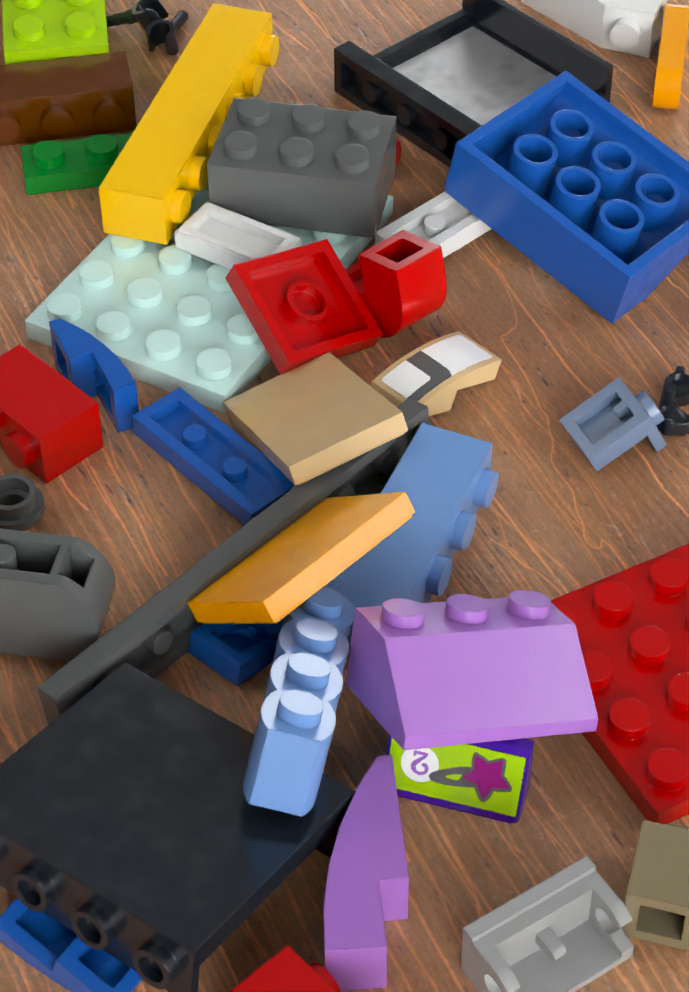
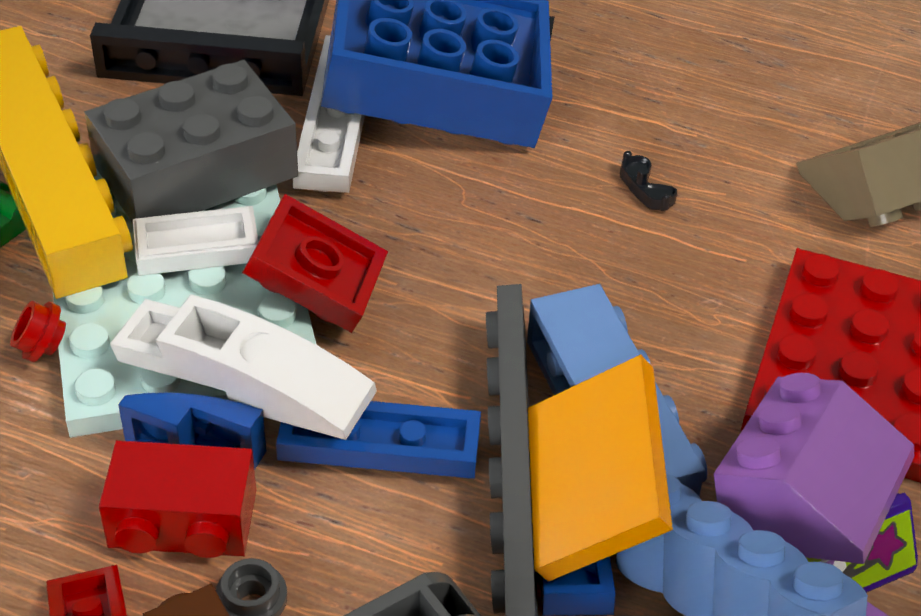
camera: 45 degrees left, 0 degrees up
(72, 248) = (38, 330): none -> red plate
(155, 346) = (247, 360): none -> white slope
(315, 418) = (444, 346): tan tile -> none
(400, 281) = (374, 196): red brick -> none
(437, 371) = (466, 262): slope -> none
(613, 423) = (638, 221): sand blue bracket -> none

